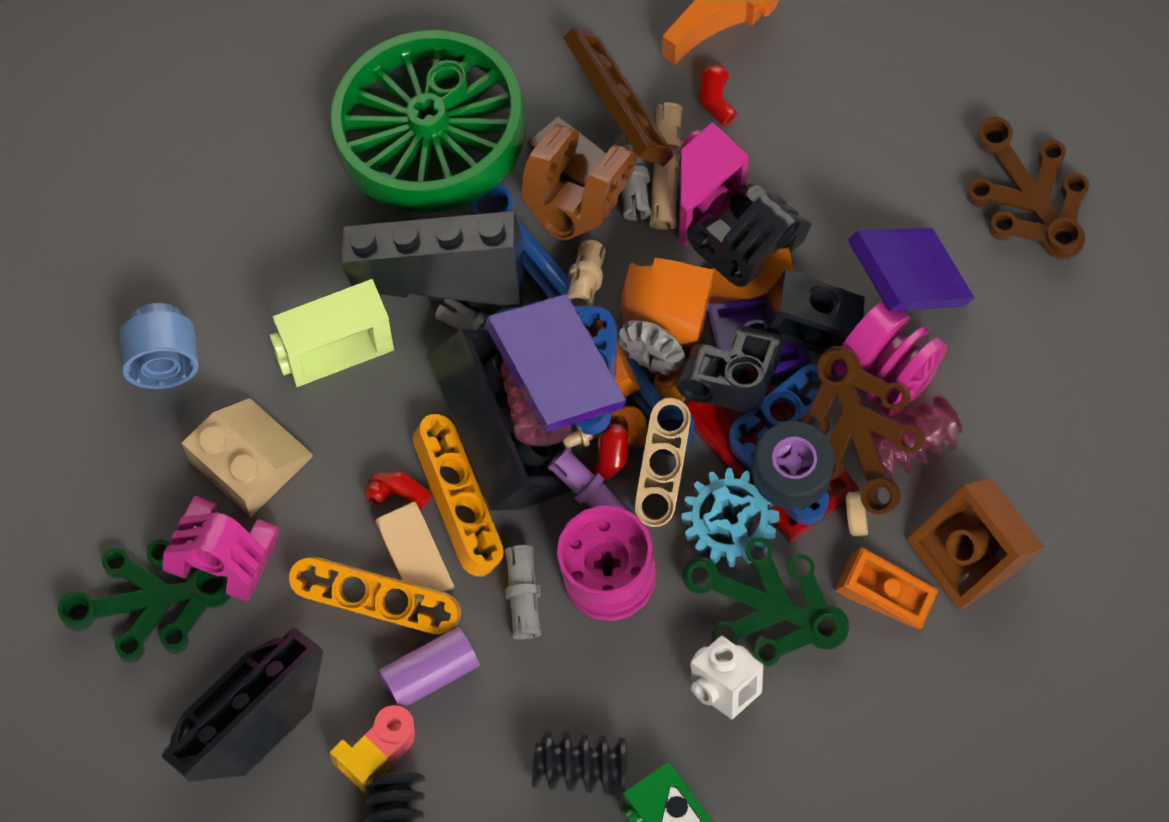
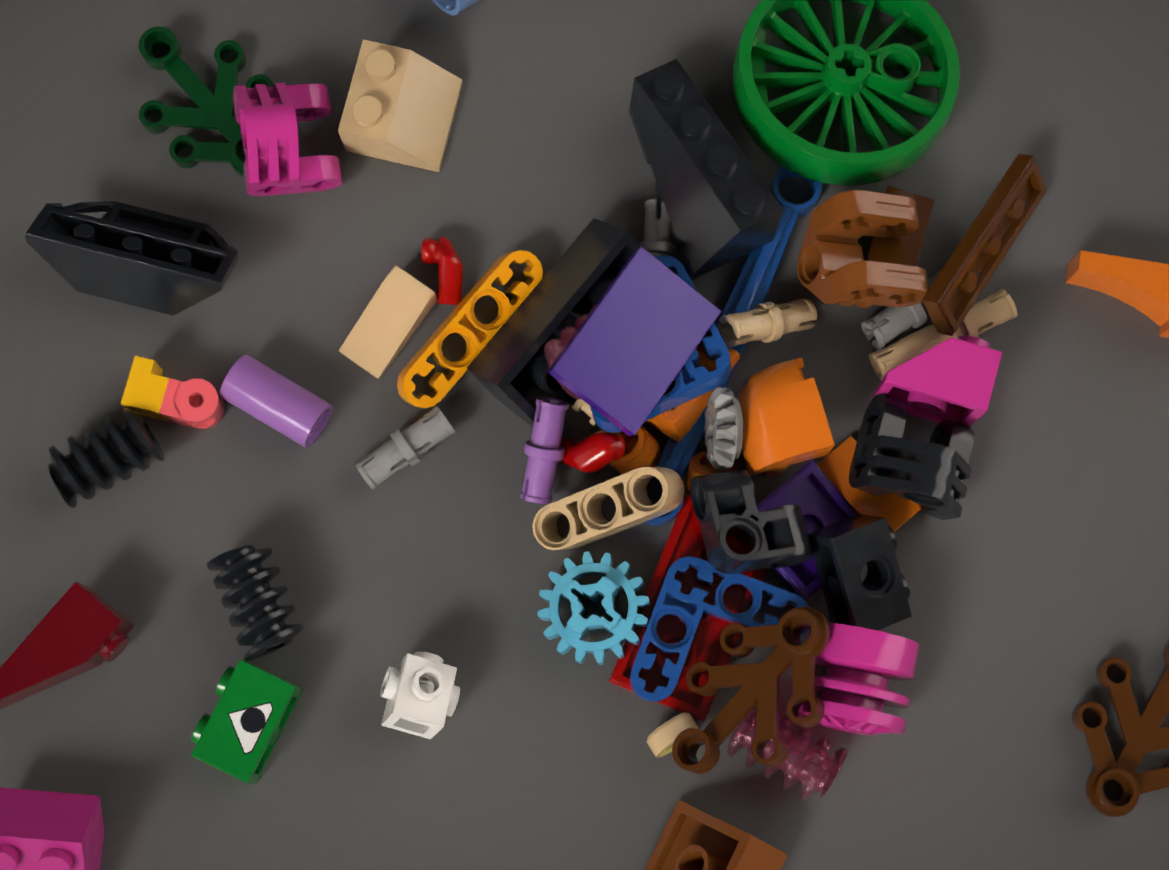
camera: 60 degrees right, 10 degrees up
(332, 333) = (559, 112): yellowish green window -> none
(374, 599) = (330, 306): light orange beam -> none
(604, 539) = (473, 483): dark pink wheel -> none
(711, 94) = (1053, 335): red arm -> none
(773, 605) = (524, 700): dark green plant -> none
(797, 448) = (687, 632): black wheel -> none
(885, 588) = (611, 807): orange slope -> none
(910, 269) = (969, 647): dark purple tile -> none

